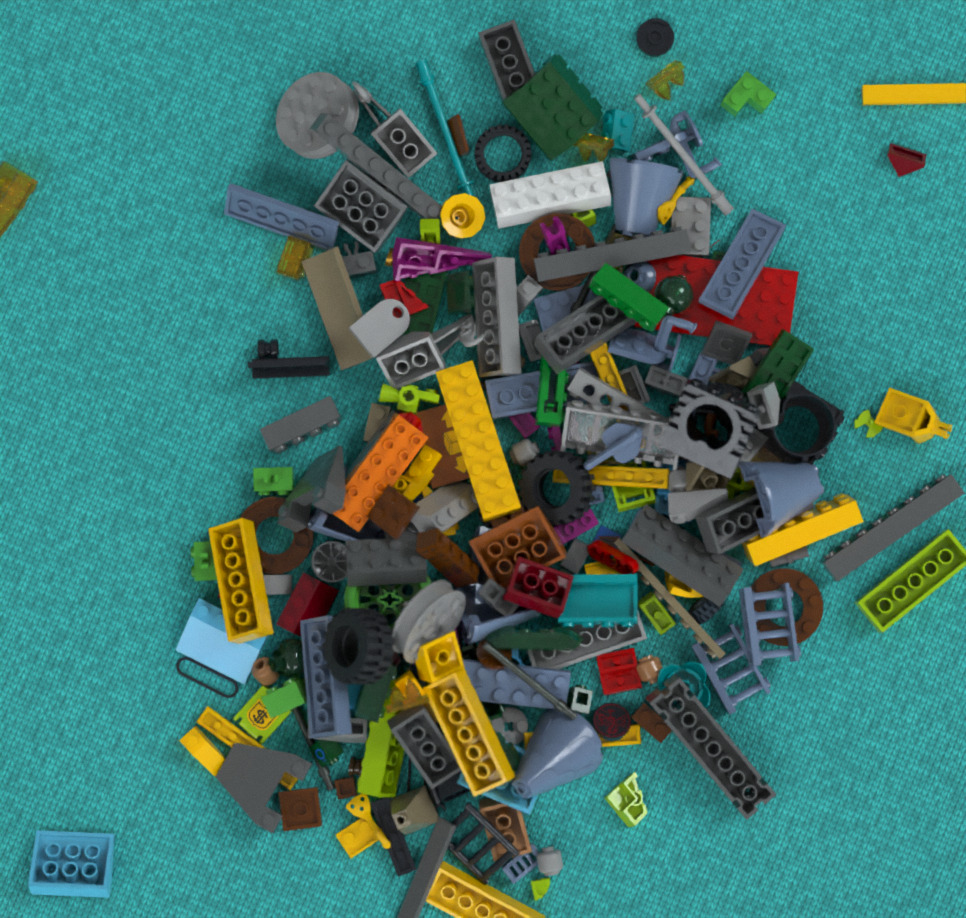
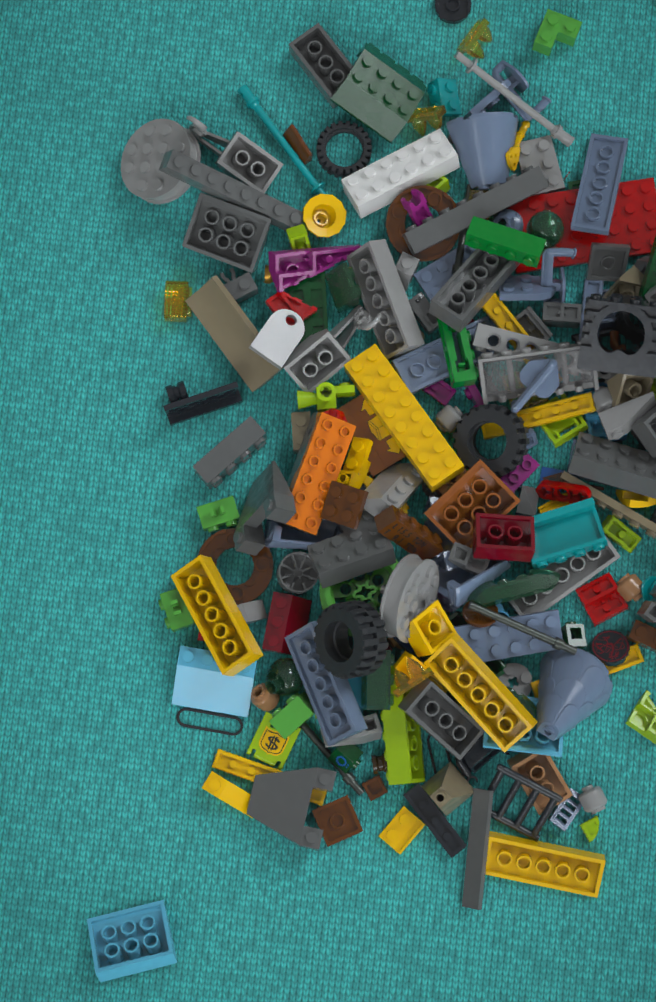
camera: 20 degrees left, 5 degrees down
(280, 217) = (152, 265): sand blue plate -> none
(365, 814) = (403, 808): yellow piece -> none

